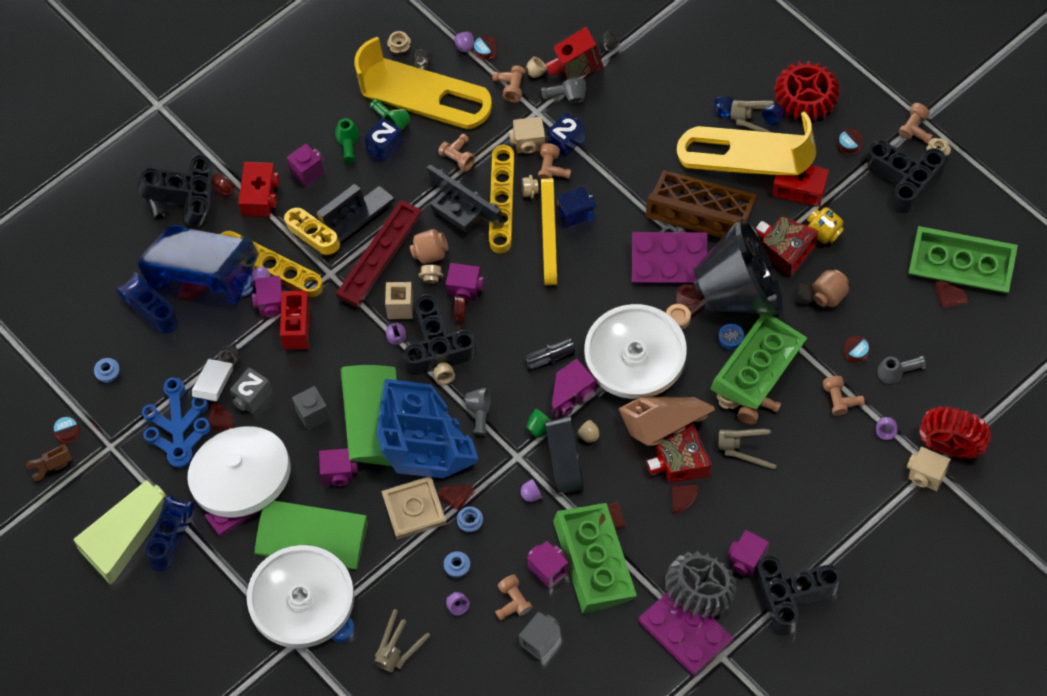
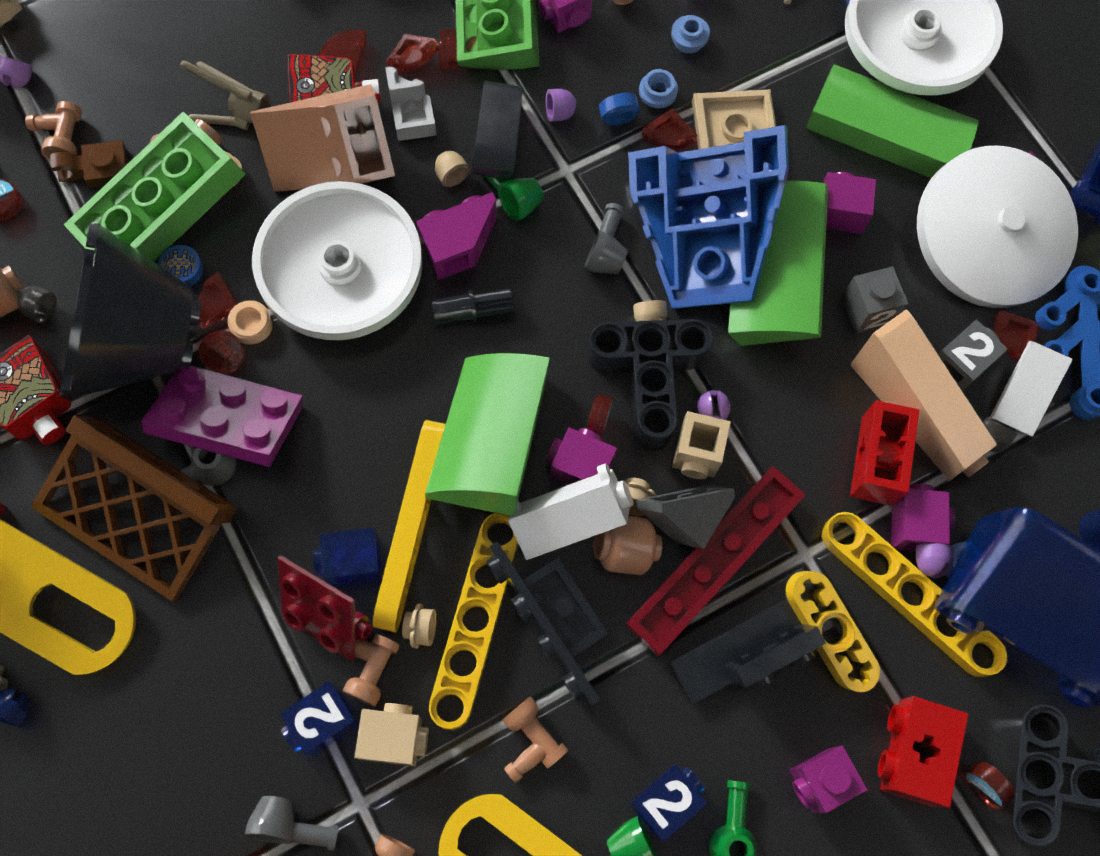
camera: 175 degrees left, 10 degrees up
(277, 356) = (908, 372): none -> light nougat slope
(400, 265) = (688, 514): none -> dark grey slope
(463, 245) = (571, 513): none -> white brick
(491, 494) = (619, 109): none -> blue tile
(518, 278) = (489, 432): none -> slope
(569, 167) = (320, 610): none -> dark red hinge
(627, 469) = (410, 107): none -> light grey slope
(638, 504) = (412, 52): none -> clear red tile
(702, 323) = (215, 301): none -> clear red tile
(806, 385) = (96, 165): none -> reddish brown plate

